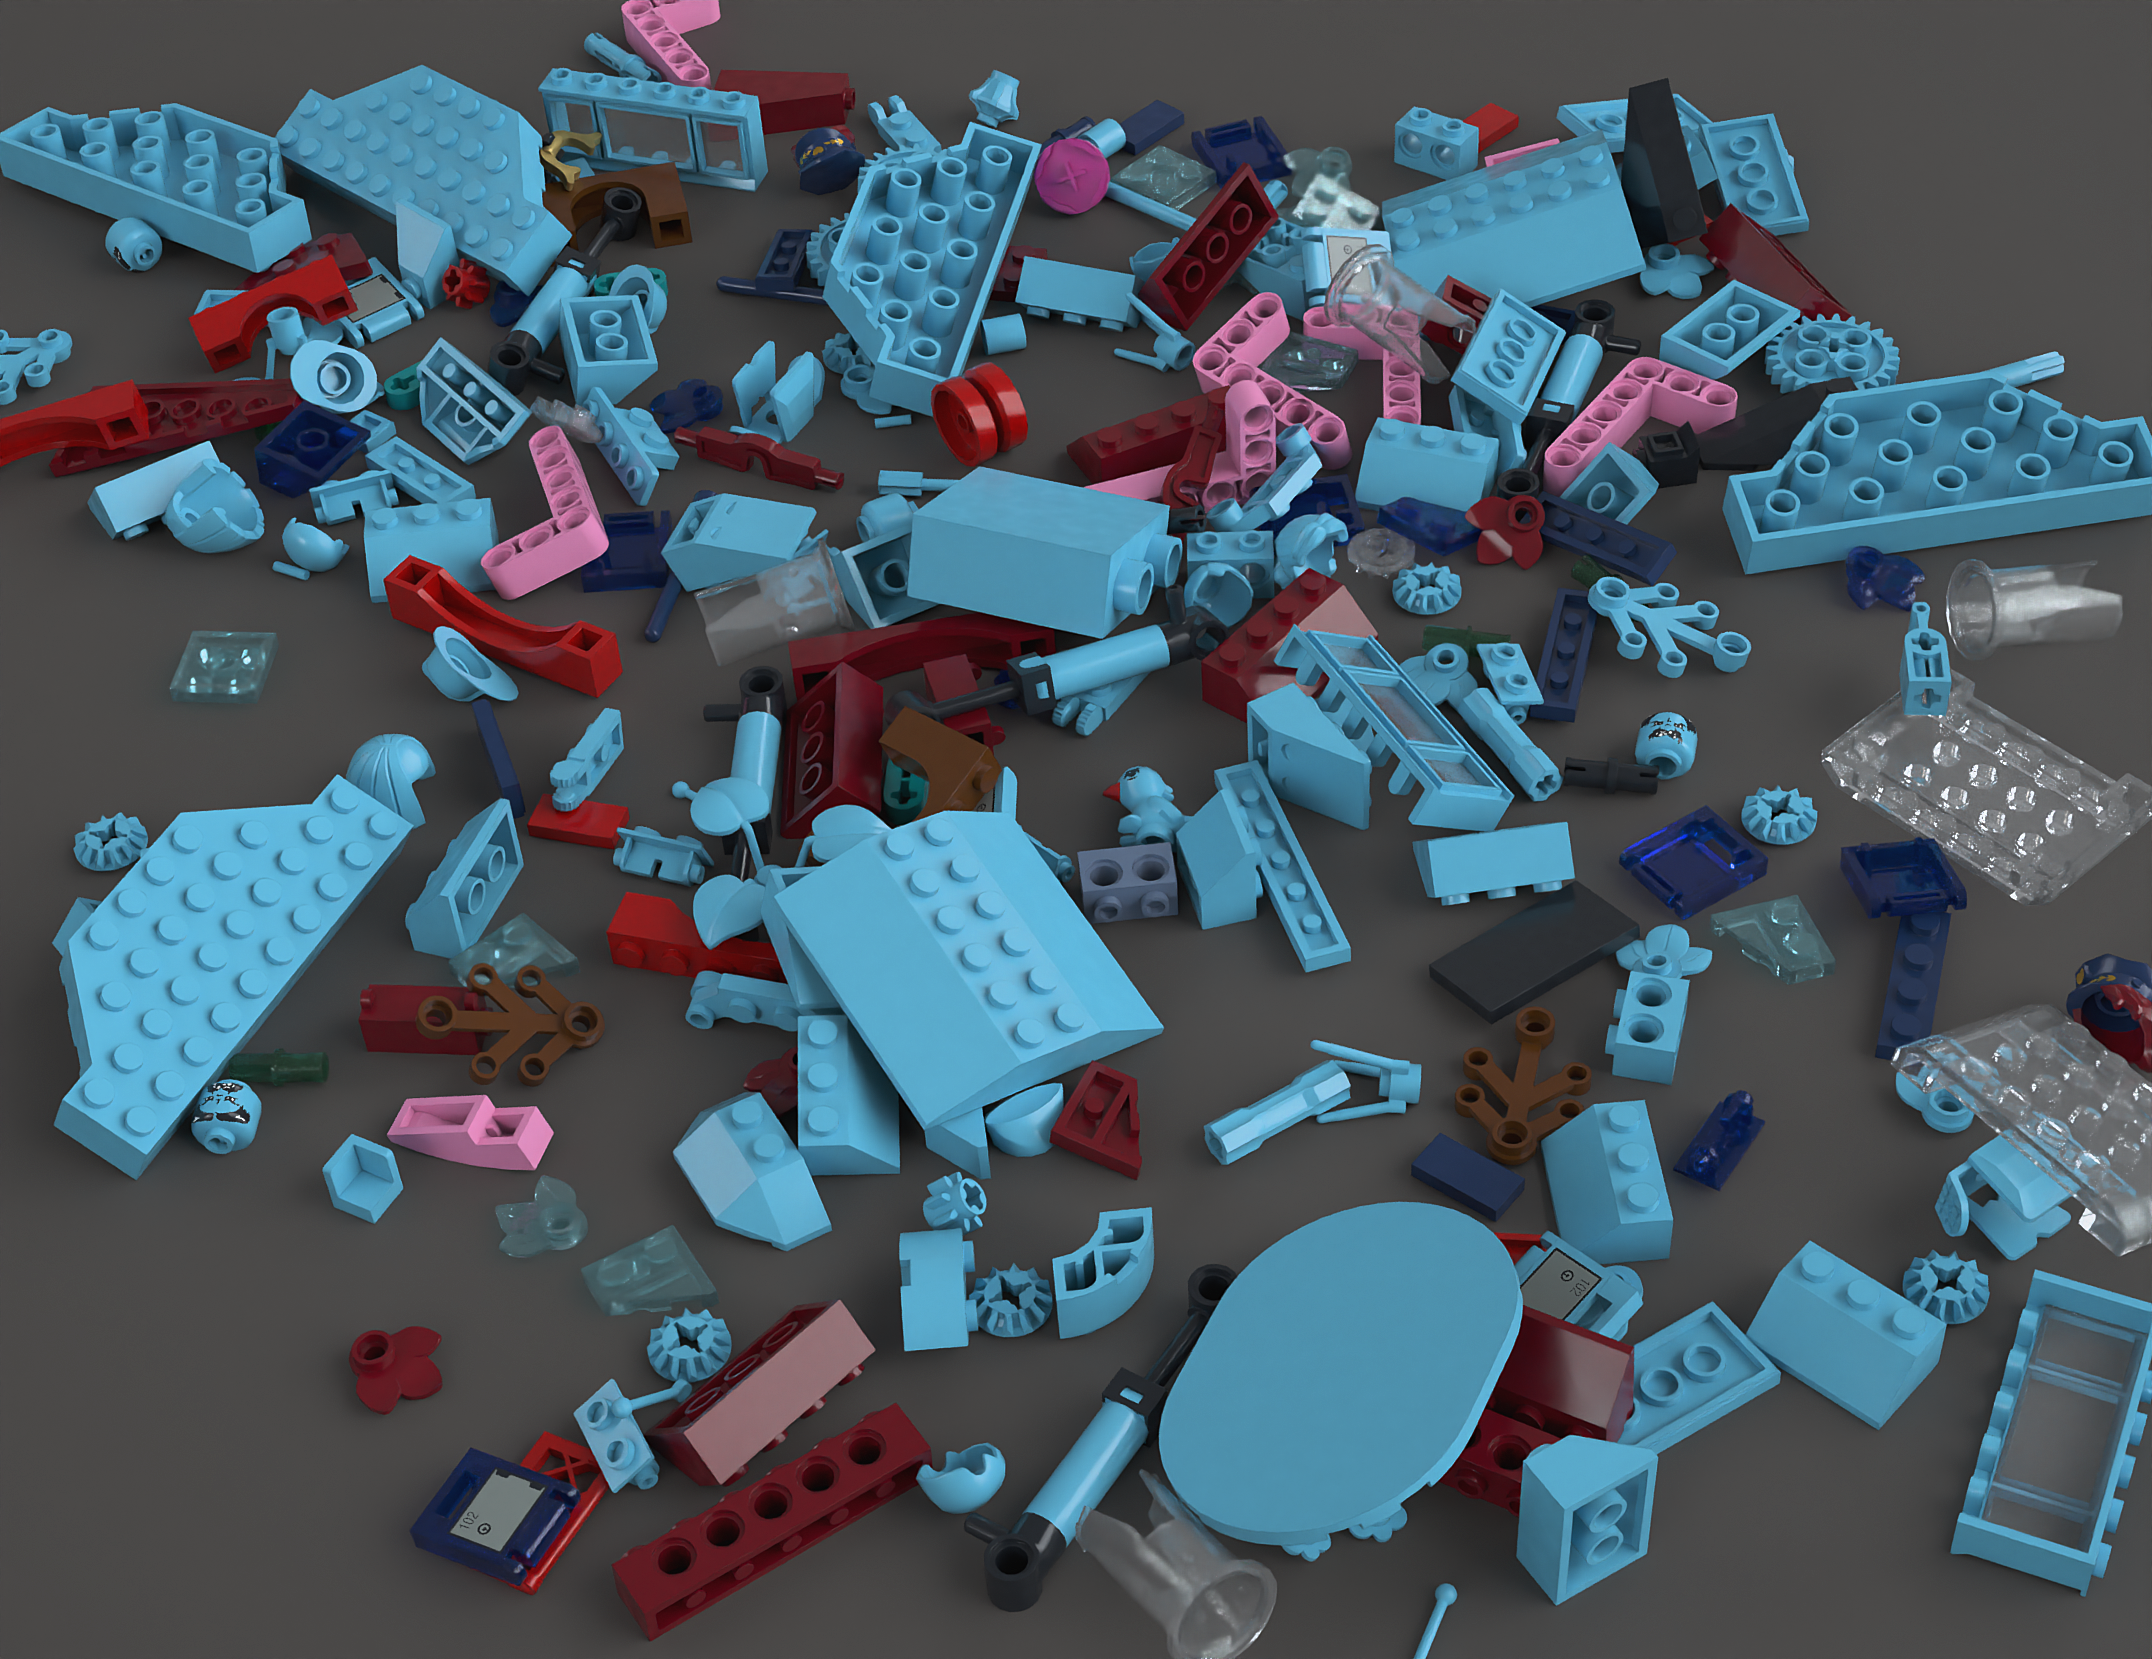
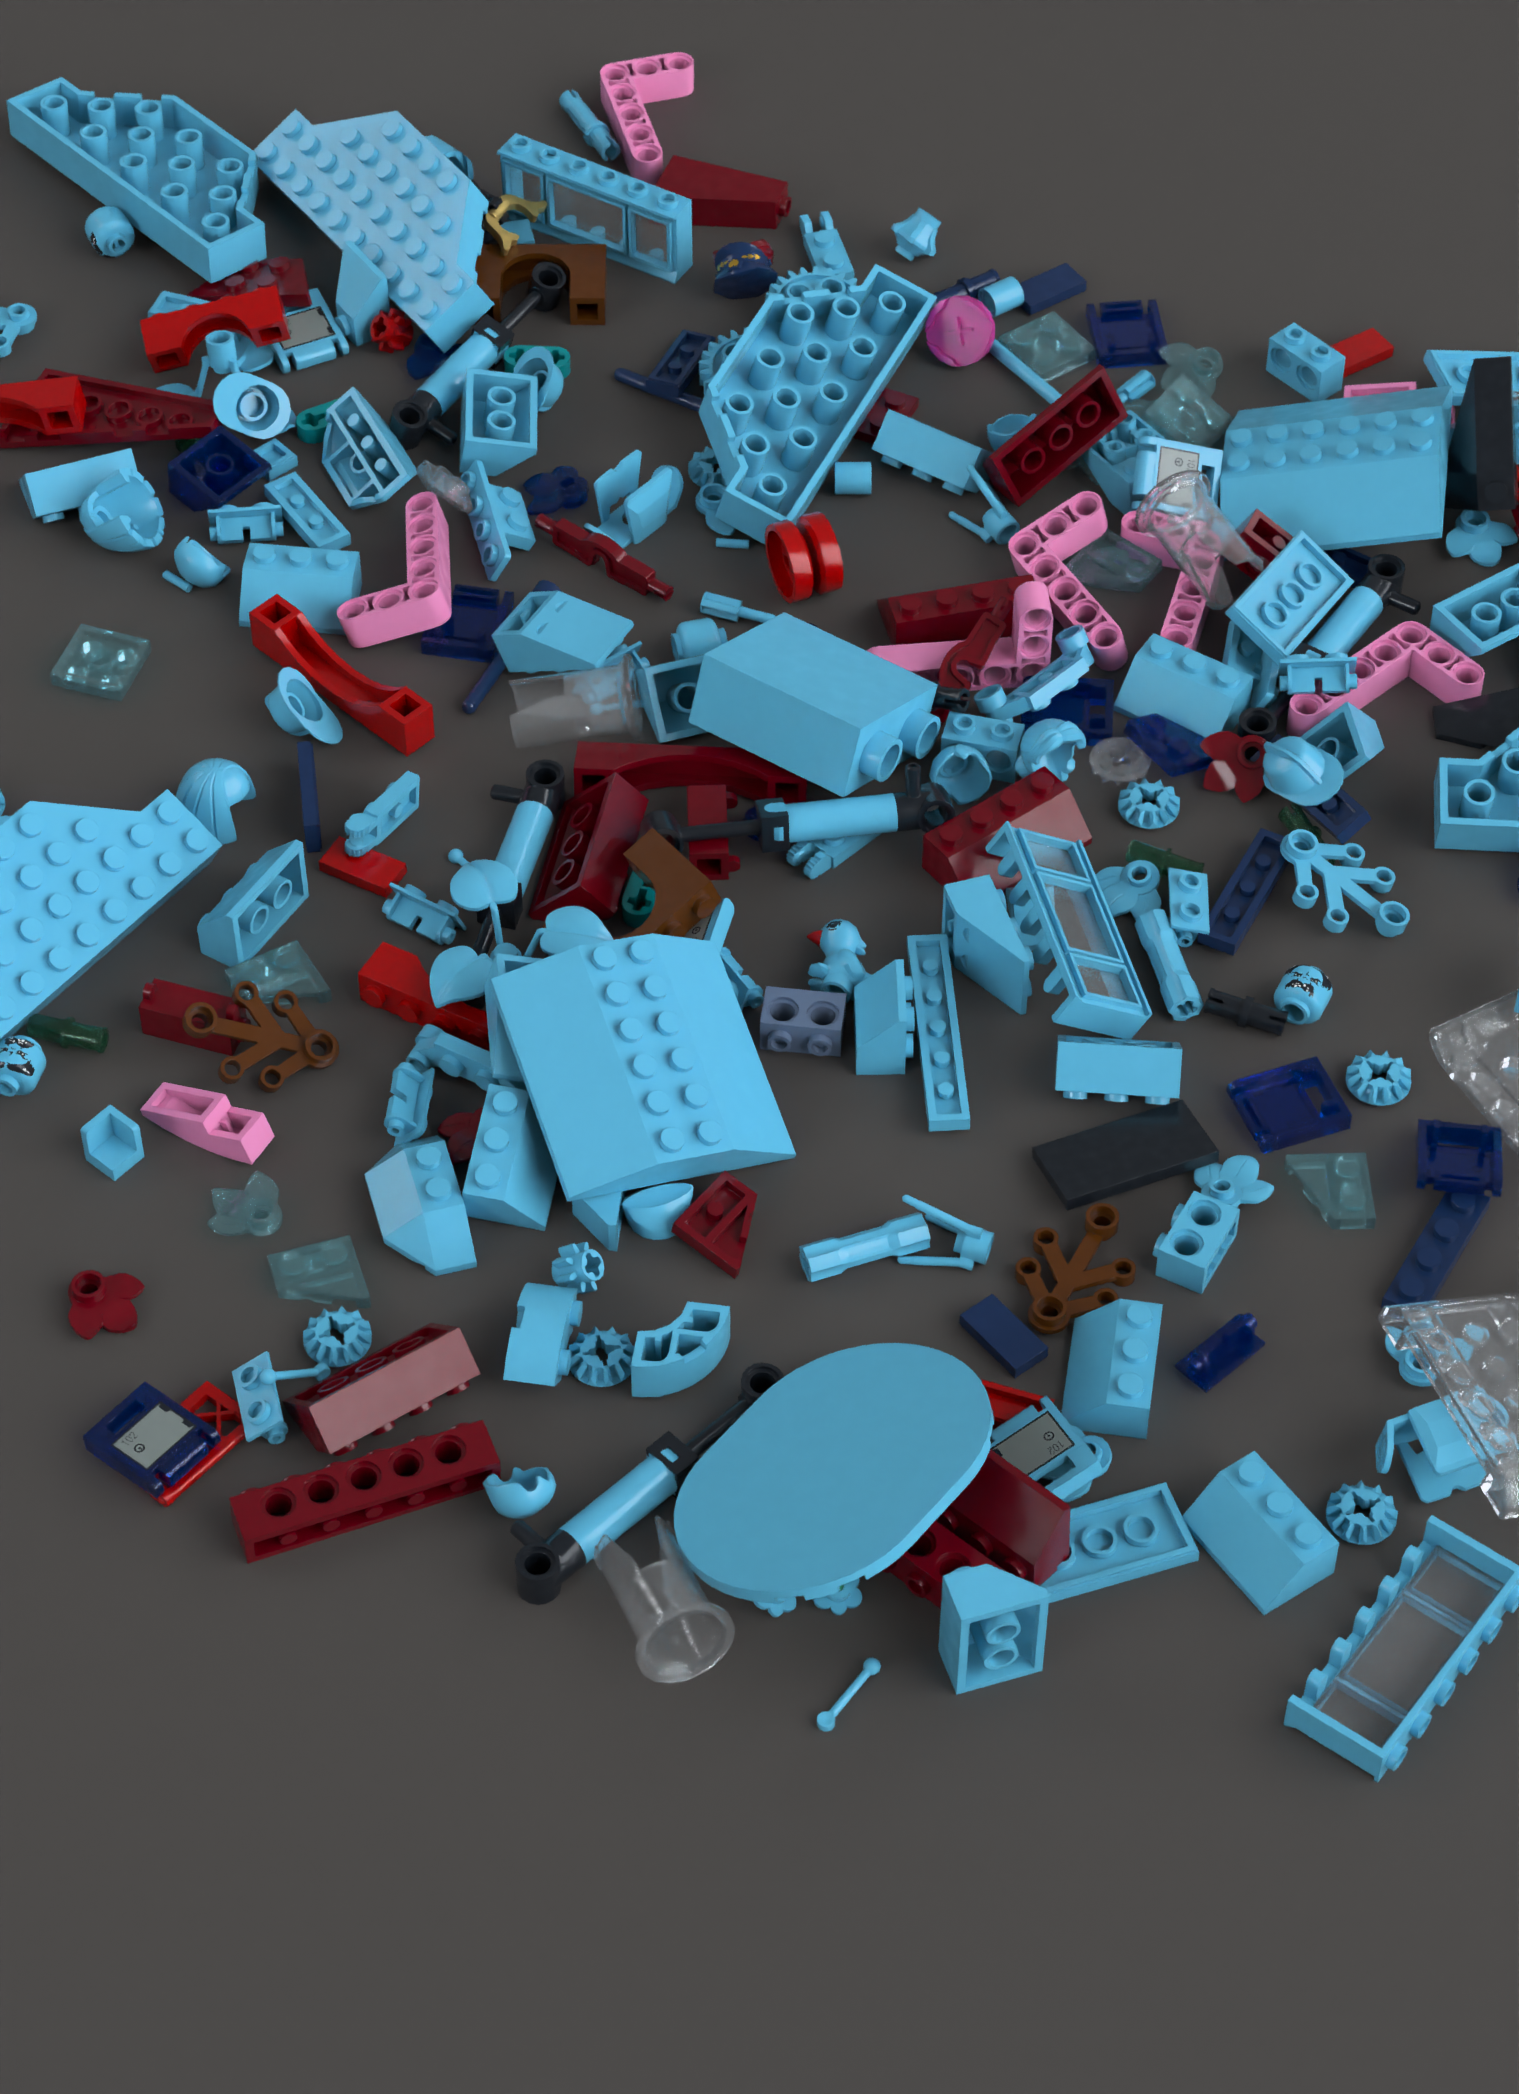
camera: 10 degrees right, 5 degrees up
(705, 1062) = (408, 1116): none -> medium azure hinge
(1548, 424) = (1303, 671): none -> medium azure hinge
(1584, 521) = (1301, 771): none -> medium azure piece
(1670, 456) = (1404, 723): black window -> none

